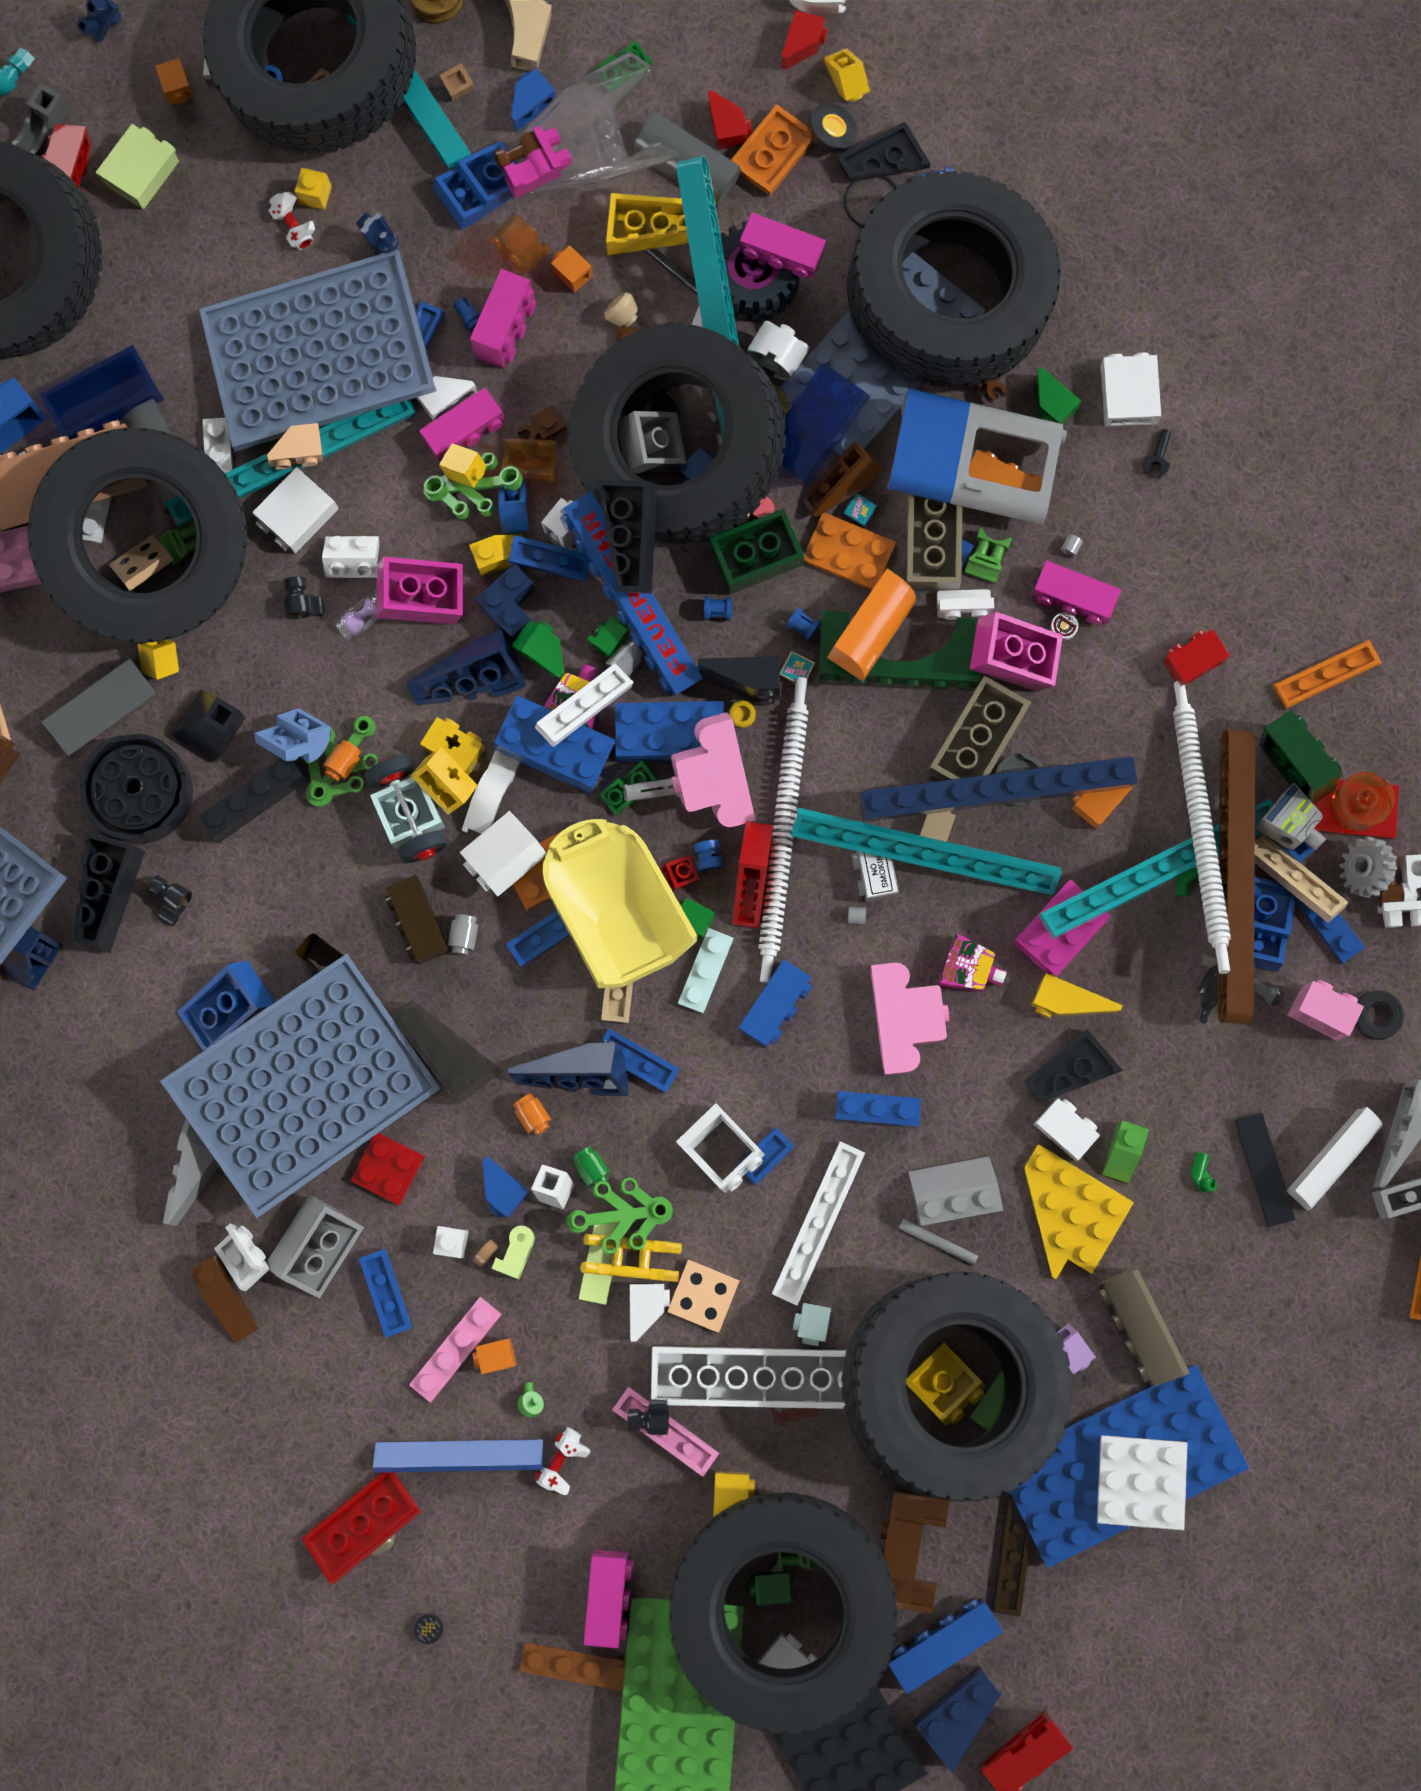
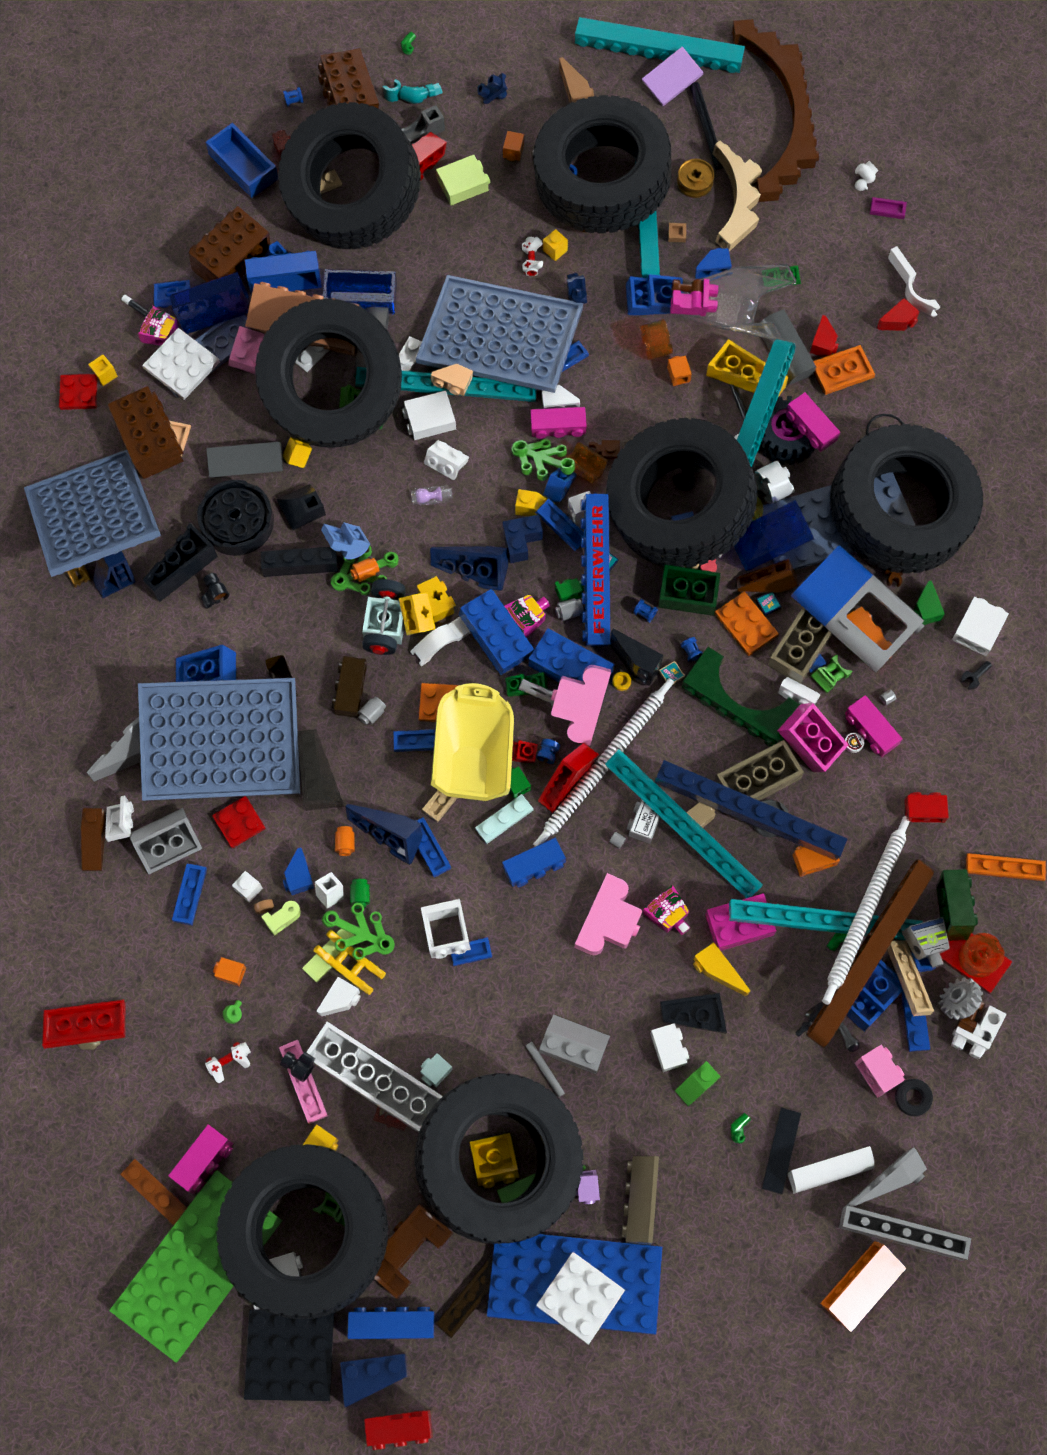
camera: 25 degrees right, 10 degrees down
(141, 562) = (321, 393): light nougat tile -> none
(298, 602) = (398, 467): black piece -> none
(419, 590) = (472, 498): dark pink brick -> none
(428, 1628) = (83, 1113): black tile -> none
(455, 1349) = (208, 954): bright pink plate -> none
(458, 1456) = (169, 1018): tile -> none
(463, 465) = (543, 443): yellow brick -> none
(467, 313) = (602, 365): blue pin -> none
(502, 854) = (424, 677): white brick -> none
(503, 319) = (619, 375): dark pink brick -> none
(541, 647) = (524, 571): green slope -> none
(584, 705) = (527, 616): white plate -> none
(622, 310) = (694, 409): tan cone -> none
(630, 527) = (616, 529): black wedge -> none
(651, 442) = (663, 490): light grey brick -> none
(703, 1296) = (379, 1013): light nougat tile -> none
(771, 1588) = (306, 1219): green brick -> none
(818, 1223) = (477, 1011): white plate -> none
(832, 127) = (886, 376): black tile -> none
(847, 74) = (914, 352): yellow slope -> none
(873, 625) = (733, 671): orange brick -> none
(878, 1109) = (557, 963): blue brick -> none
(884, 155) = (908, 408): black wing -> none
(1072, 1211) = (641, 1102): yellow wing -> none

